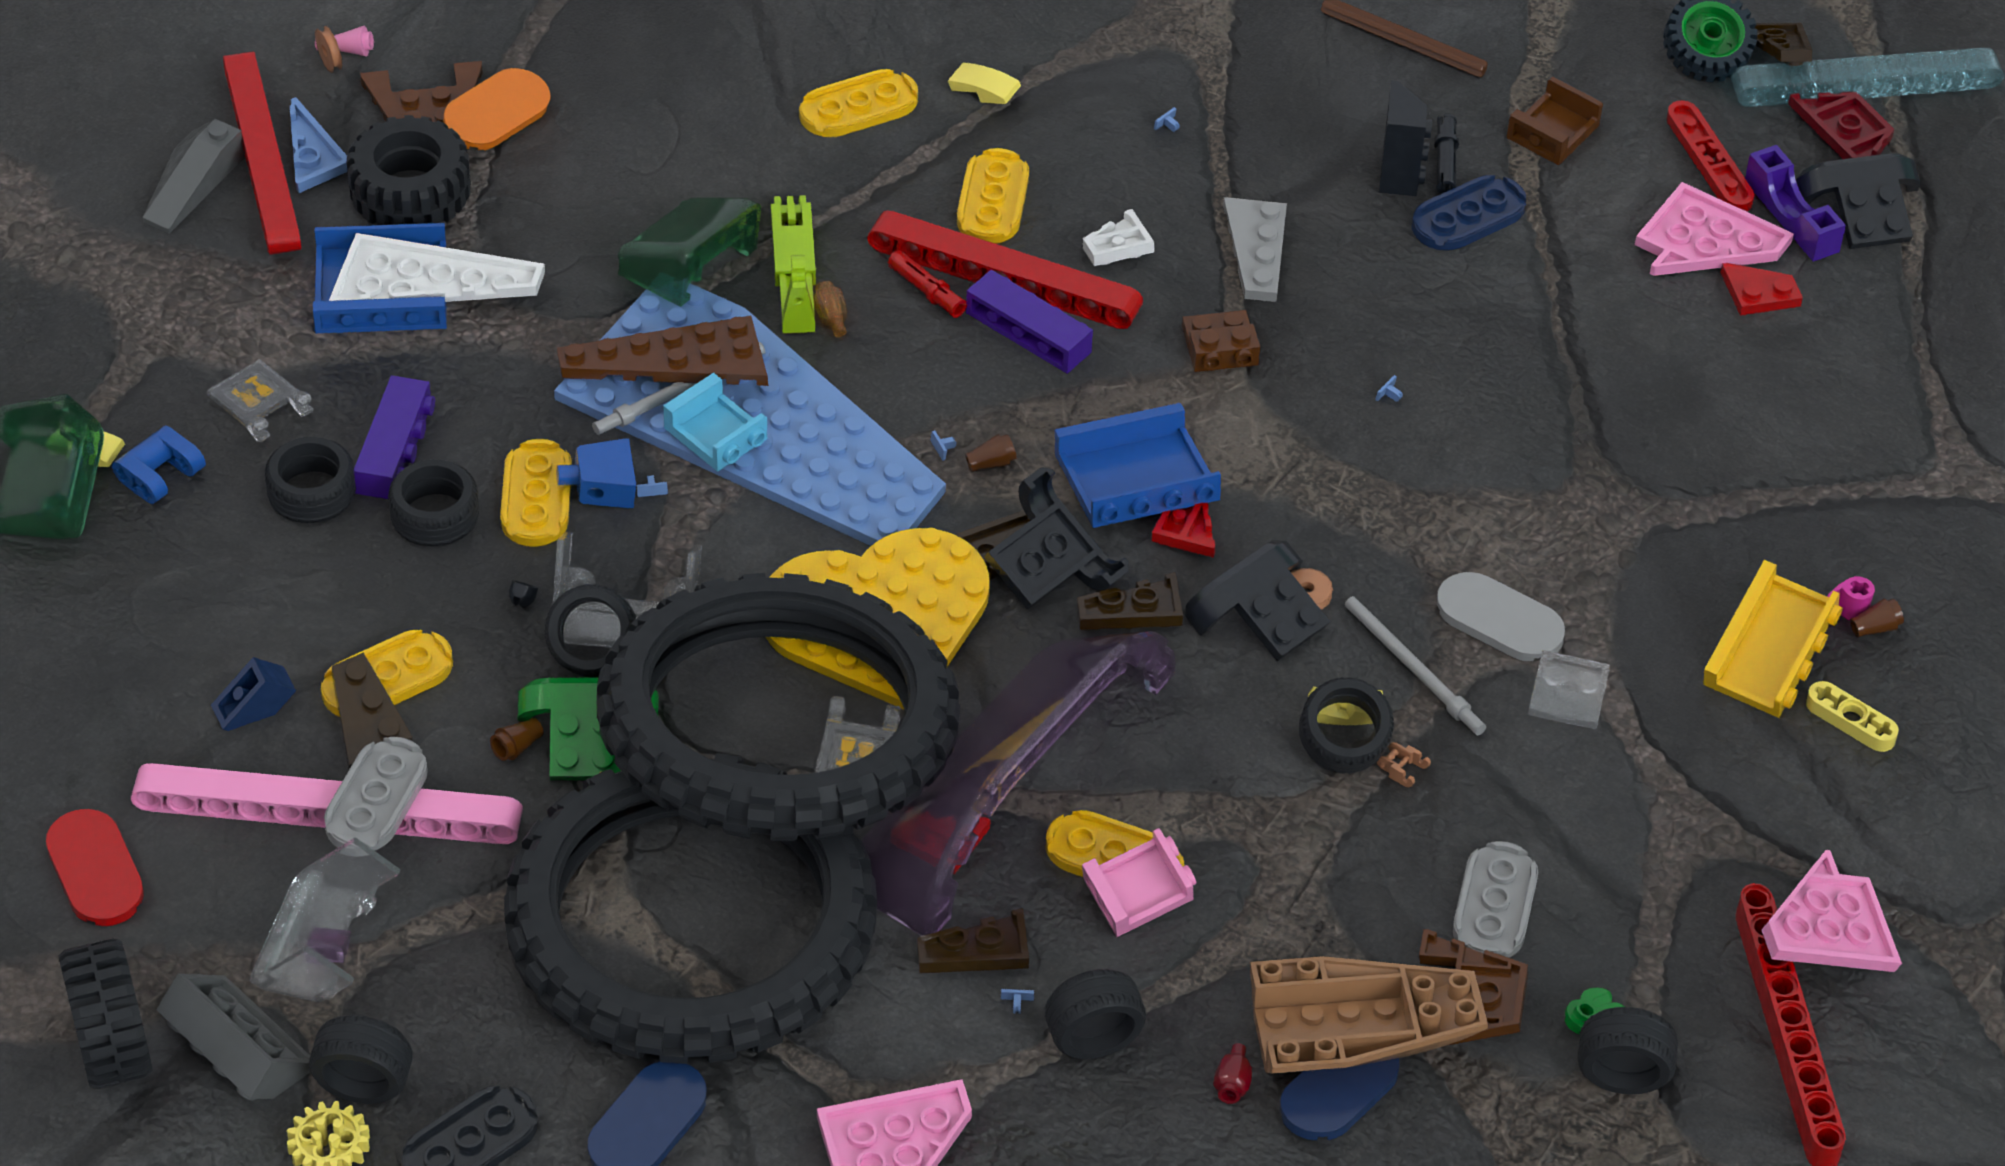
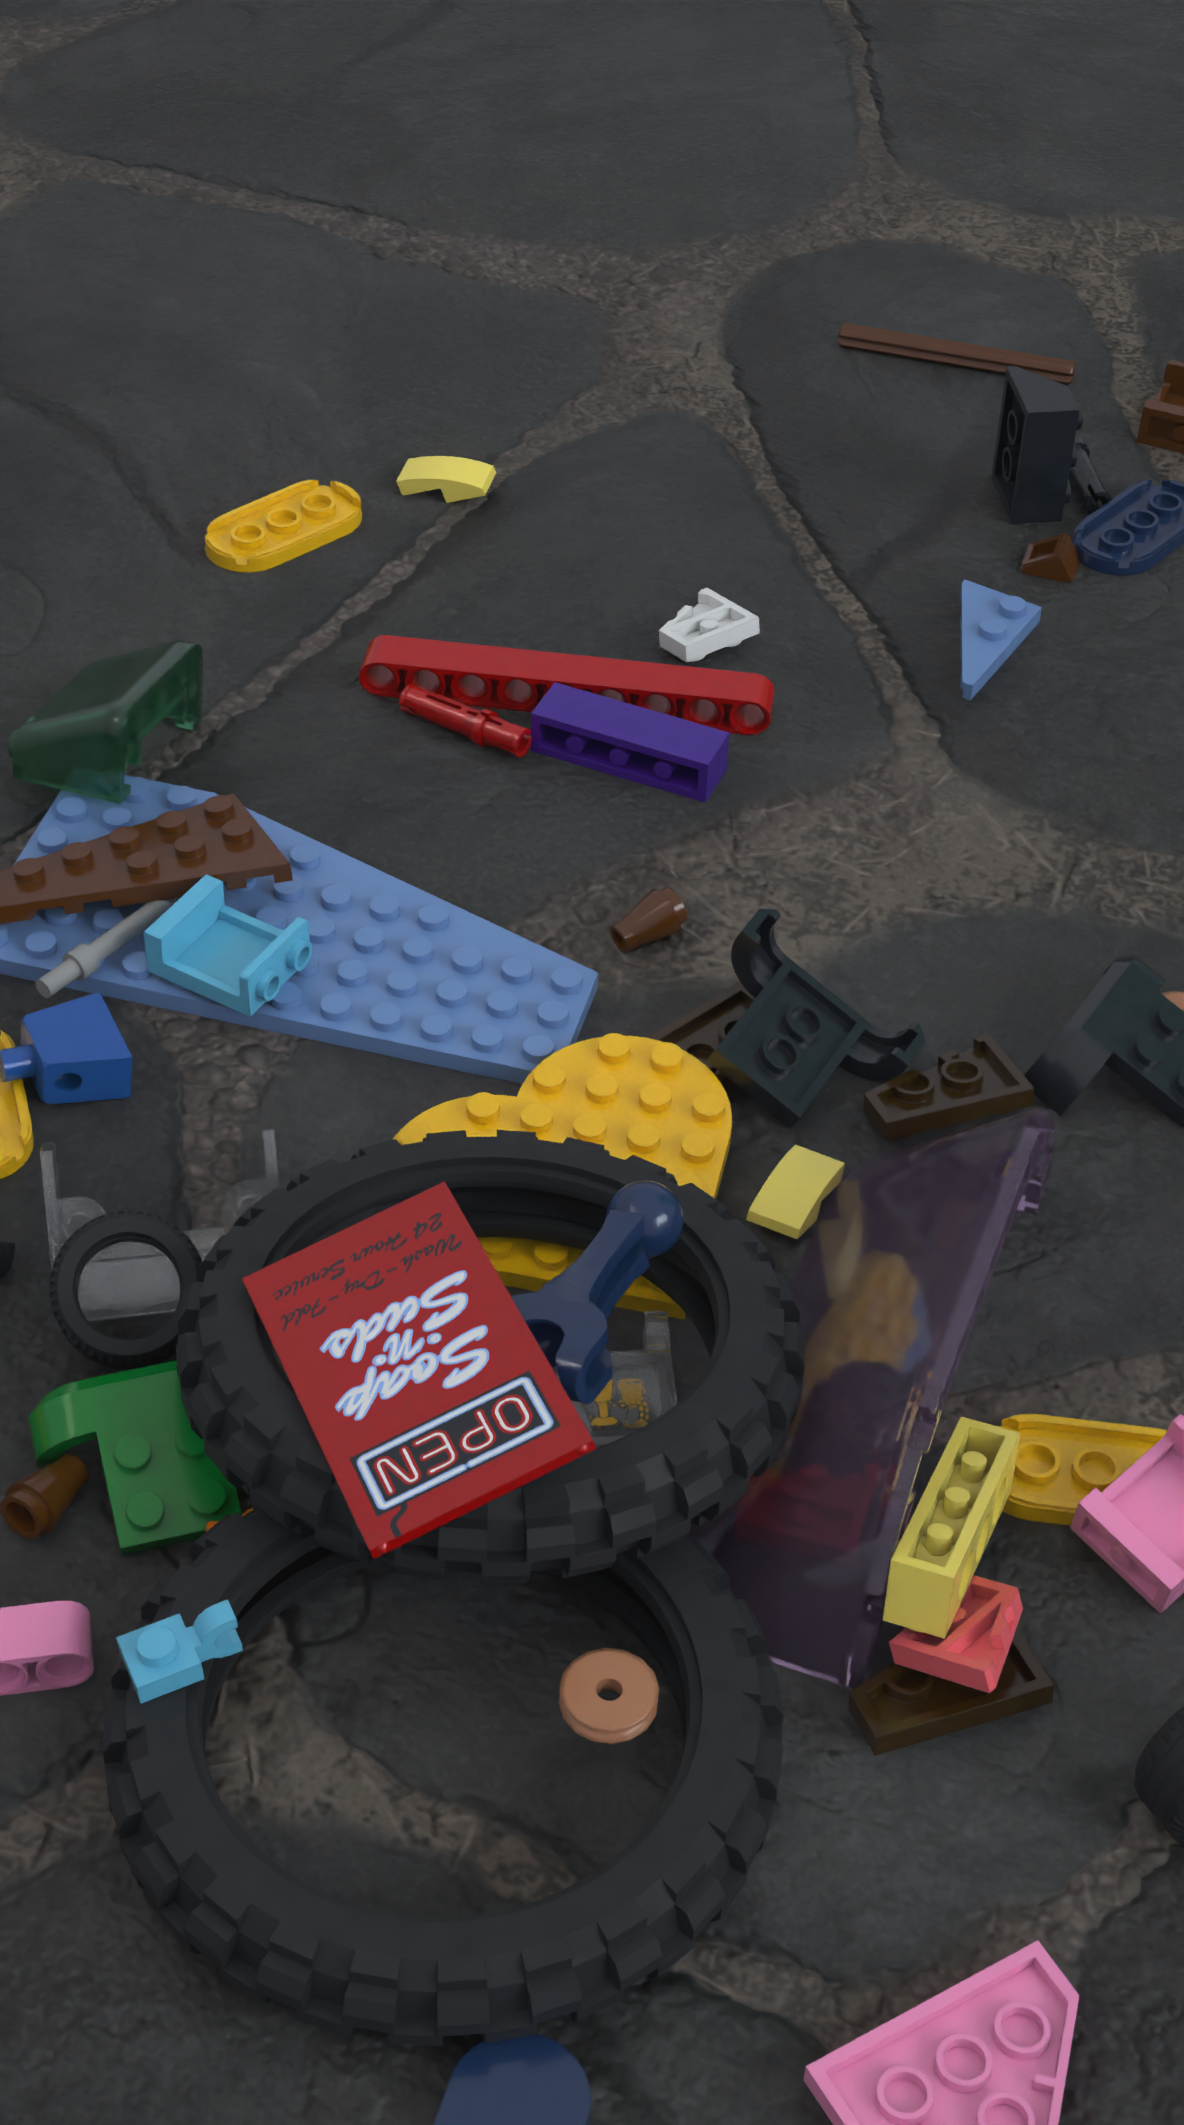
camera: 15 degrees left, 5 degrees down
(550, 834) = (170, 1655): none -> medium azure plate
(652, 488) = (153, 1062): medium blue piece -> none
(714, 707) = (415, 1369): none -> red piece
(776, 894) = (604, 1719): none -> nougat piece
(794, 257) = (269, 726): lime hinge -> none
(811, 699) = (573, 1308): none -> dark blue piece
(831, 307) = (339, 771): clear orange plant -> none
(942, 445) = (569, 924): medium blue piece -> none
(987, 919) = (975, 1641): none -> coral wing
(993, 195) = (510, 600): yellow tile -> none
(1003, 860) = (951, 1528): none -> light yellow brick
(1009, 649) = (795, 1191): none -> light yellow slope
(1017, 996) = (1054, 1760): medium blue piece -> none
(1135, 465) = (865, 899): blue panel -> none
(1168, 121) = (705, 485): medium blue piece -> none
(1186, 530) = (973, 964): red wing -> none
(1221, 340) = (901, 724): reddish brown plate -> none
(1257, 244) = (891, 602): light grey wing -> none
(1318, 278) = (990, 632): none -> medium blue wing
(1389, 390) = (1157, 747): medium blue piece -> none
(1391, 228) = (1052, 559): none -> reddish brown slope

